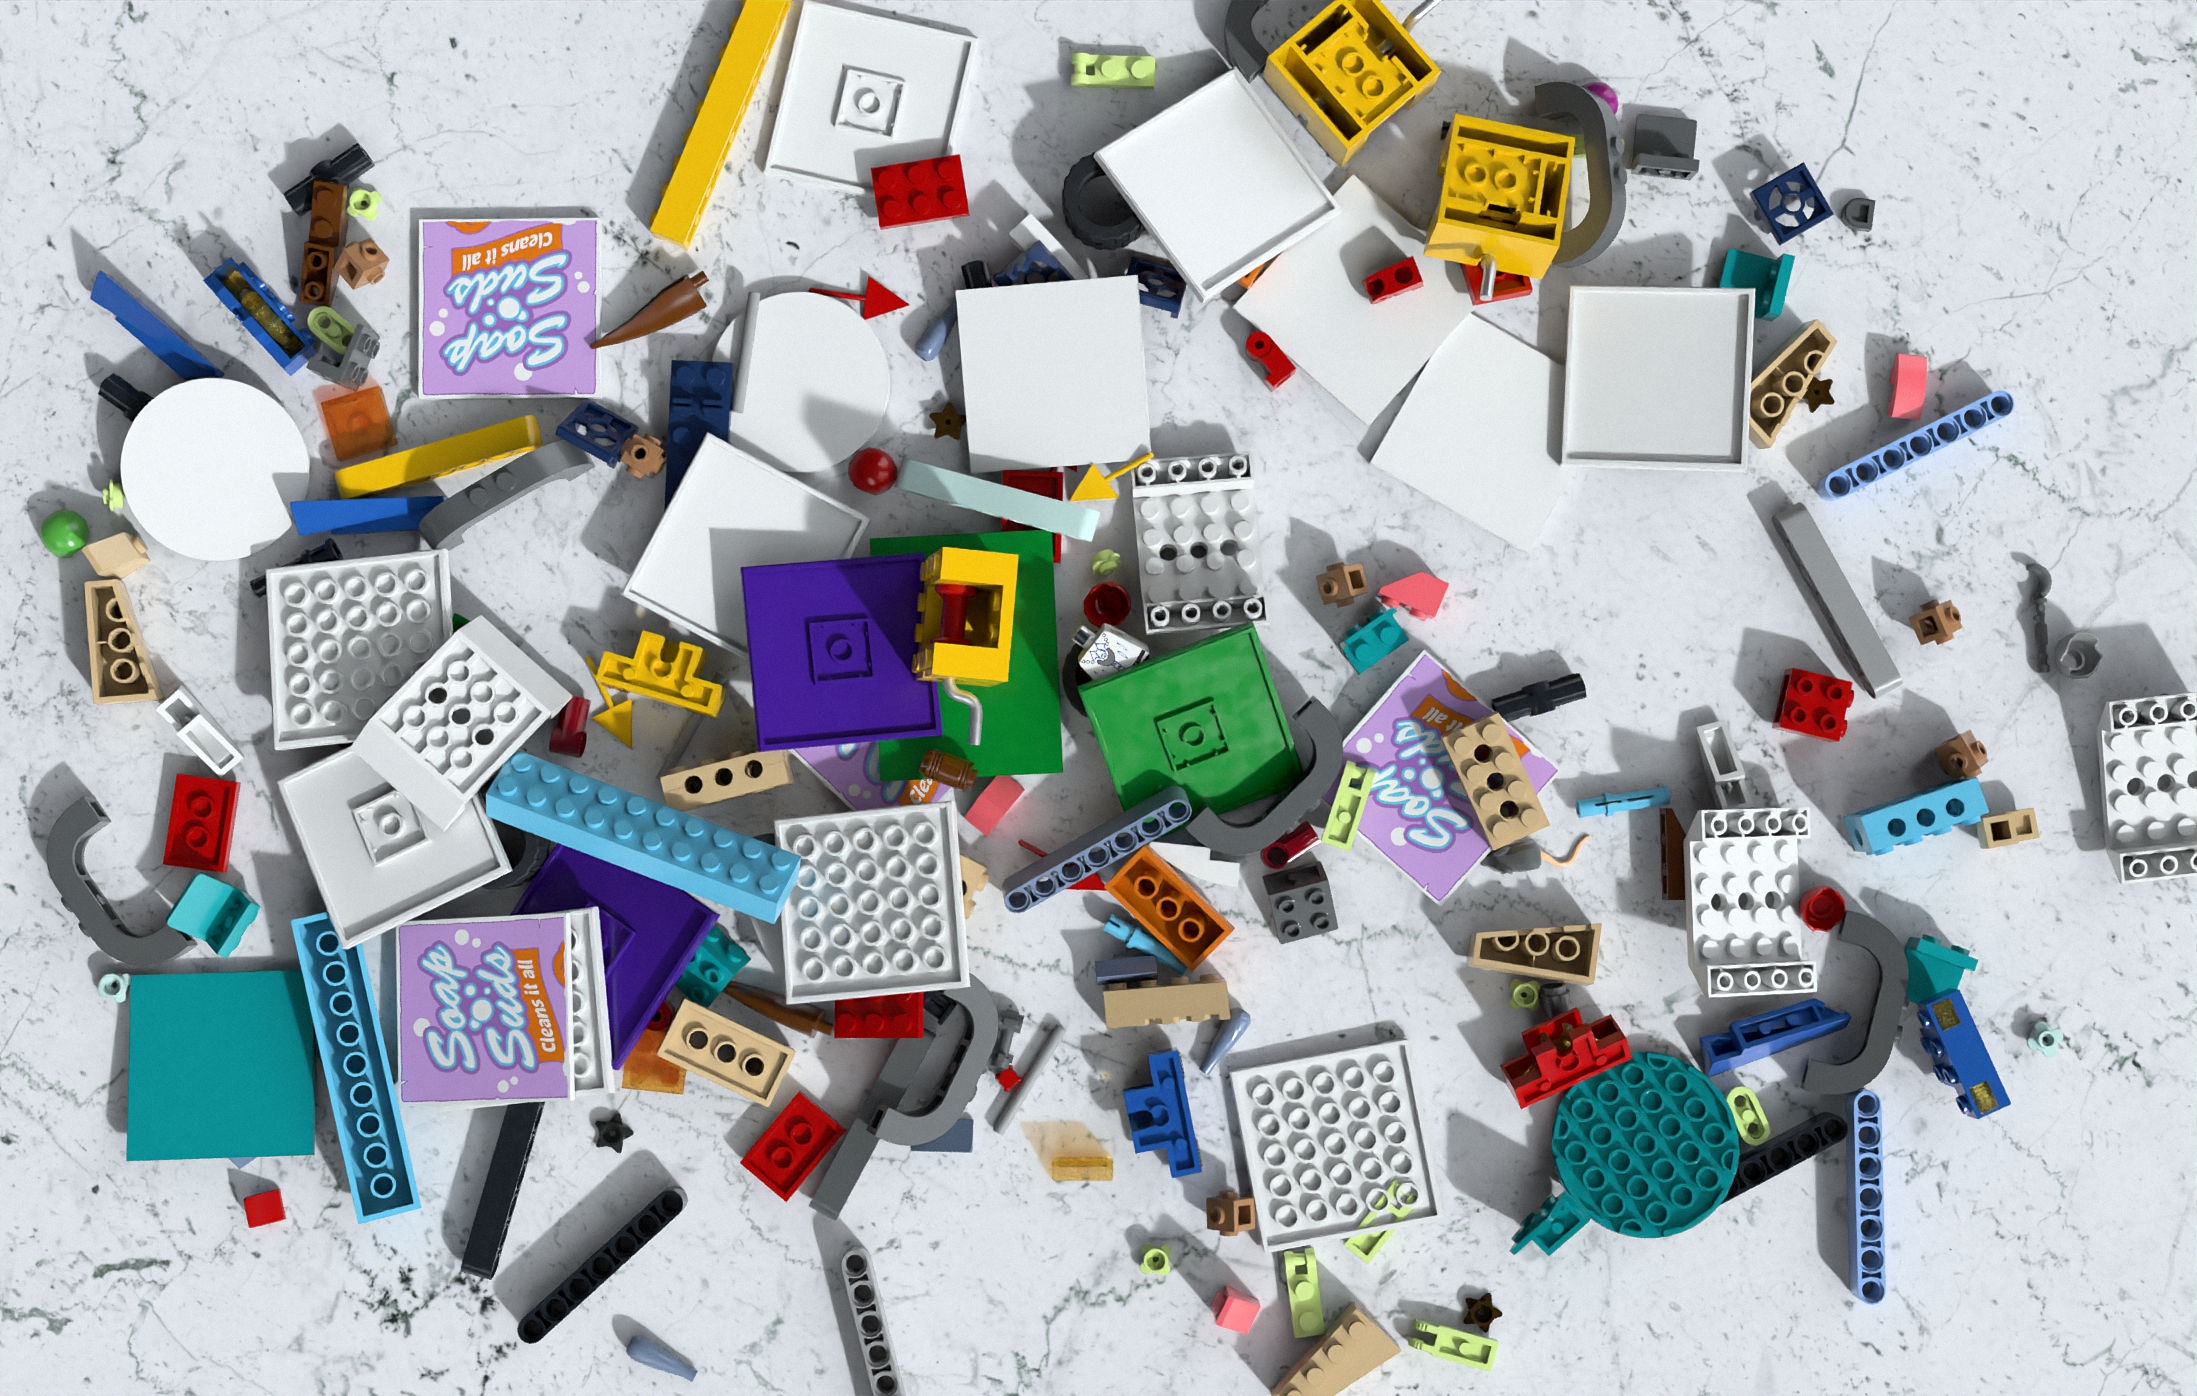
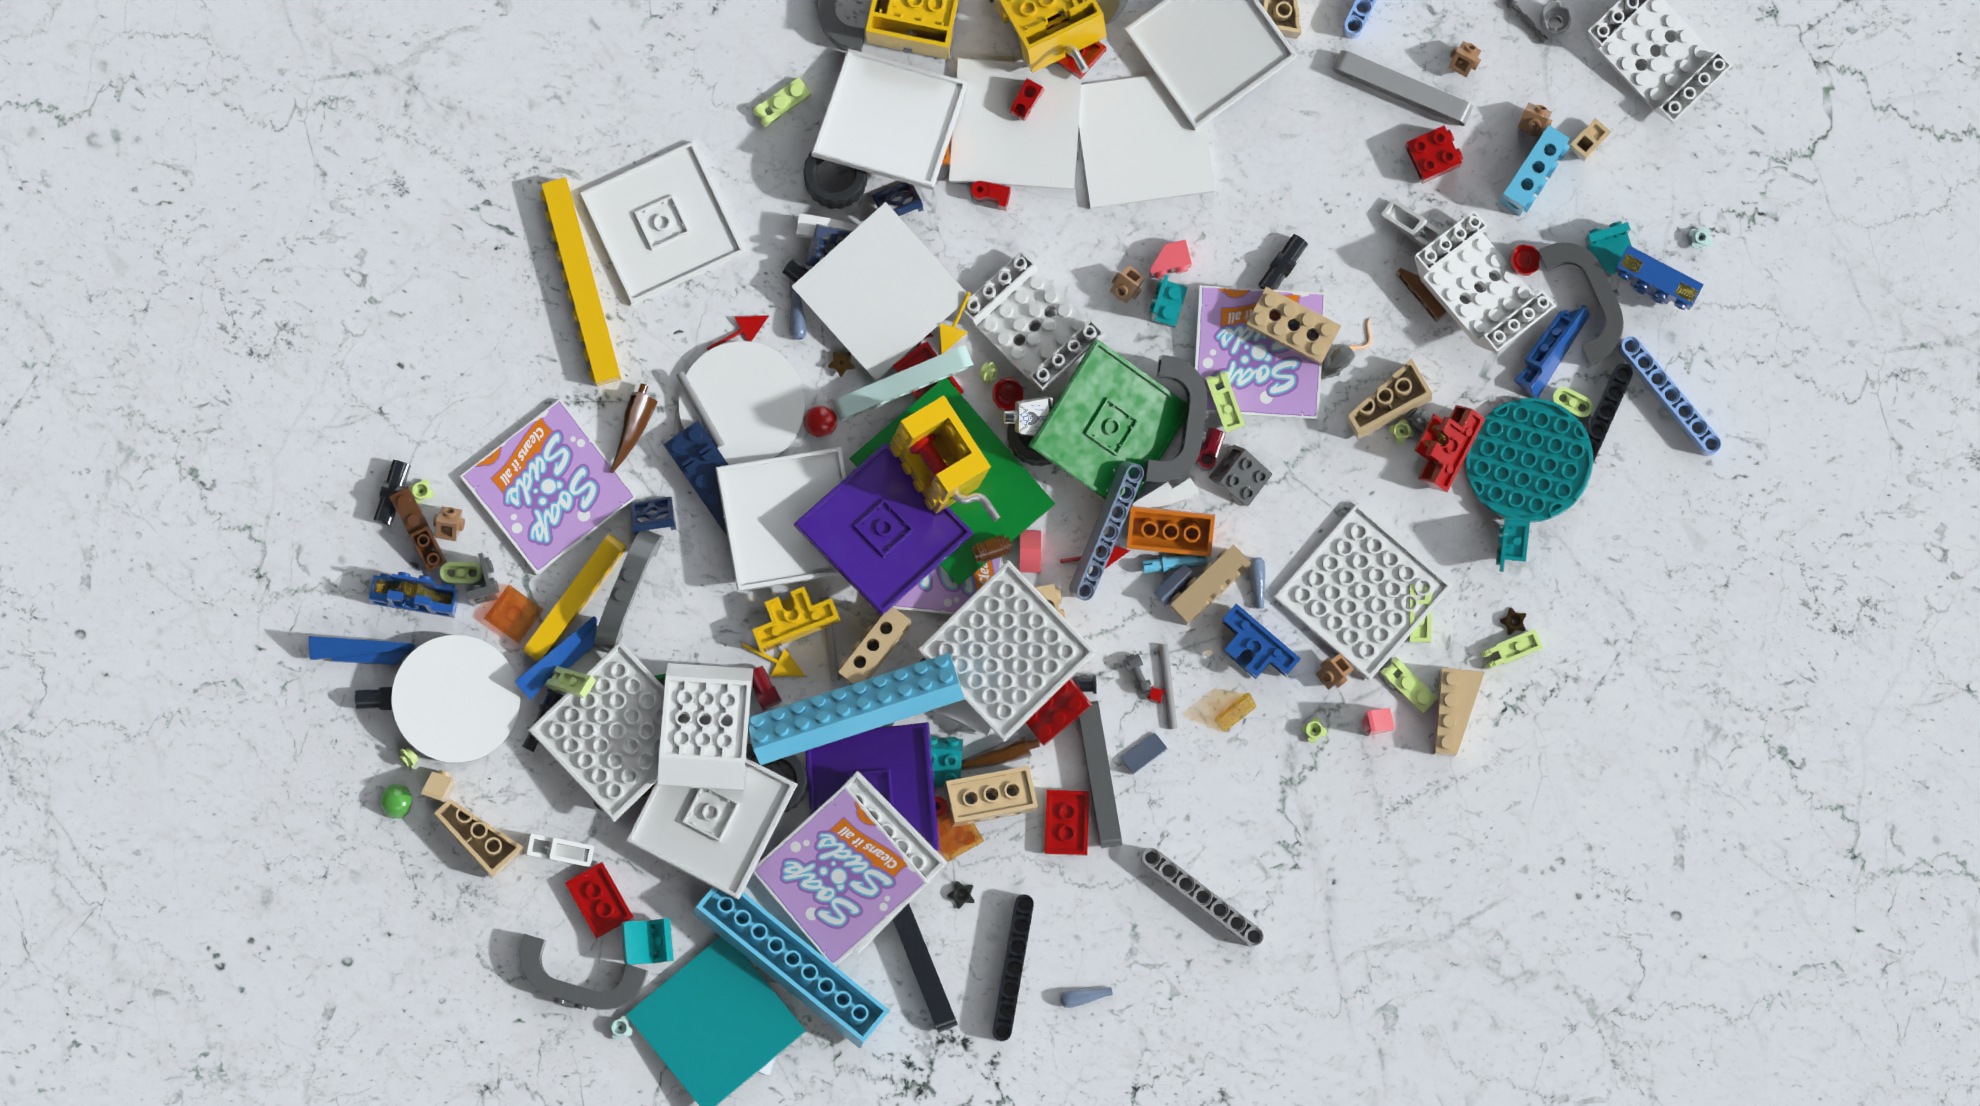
camera: 35 degrees left, 5 degrees down
(264, 1208) = (801, 1084): red slope -> none
(351, 552) = (570, 682): none -> yellowish green plate
(651, 463) = (688, 517): medium nougat brick -> none
(920, 192) = (727, 248): red plate -> none
(958, 1081) = (1129, 711): arch -> none
(1588, 807) = (1366, 292): medium azure pin -> none

